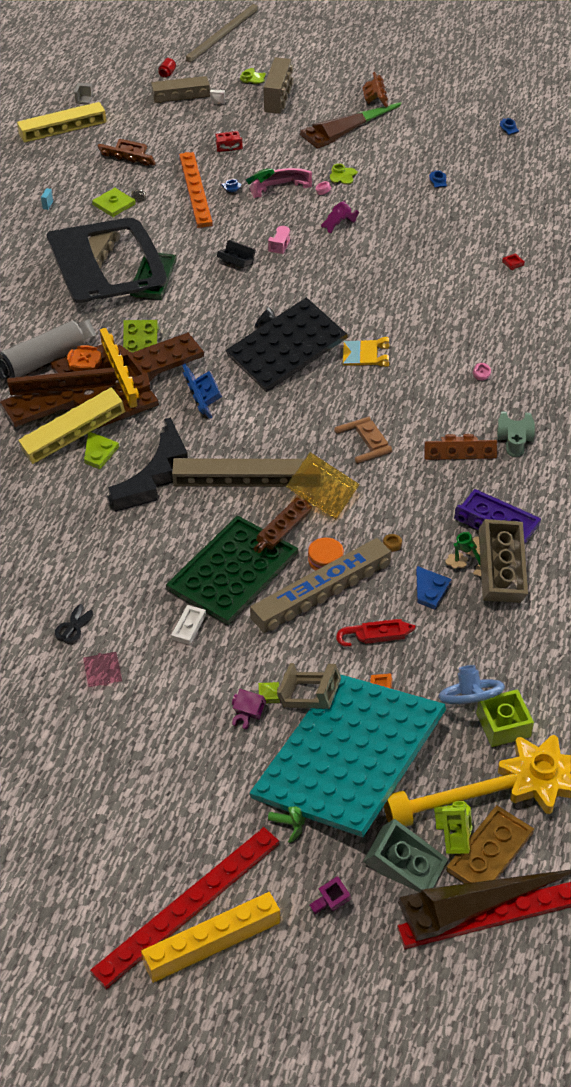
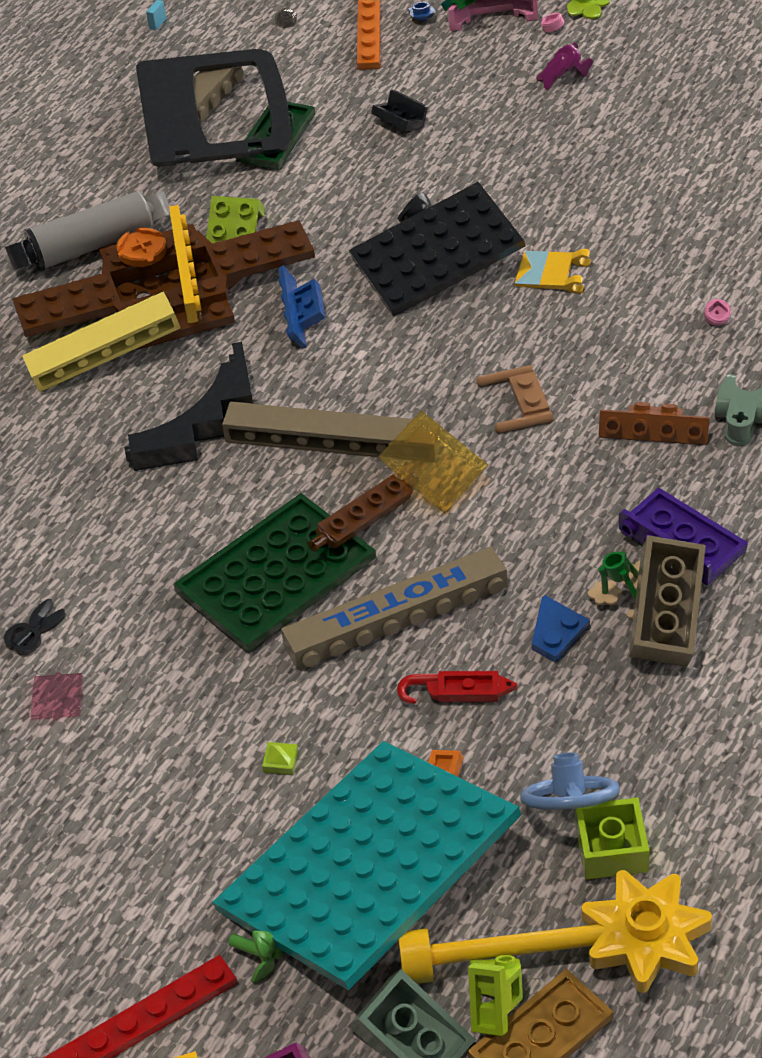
camera: 15 degrees right, 0 degrees up
(61, 381) = (100, 277): reddish brown tile -> none
(99, 450) = (134, 380): lime wing -> none
(113, 202) = (248, 25): lime plate -> none
(188, 625) = (191, 645): white plate -> none
(247, 705) = (243, 774): magenta brick -> none
(280, 241) = (469, 96): bright pink leg -> none
(324, 551) = (411, 558): orange head -> none
(326, 691) = (360, 757): dark tan window -> none
(392, 542) = (517, 556): pearl gold tile -> none
(438, 178) = (727, 19): blue animal -> none

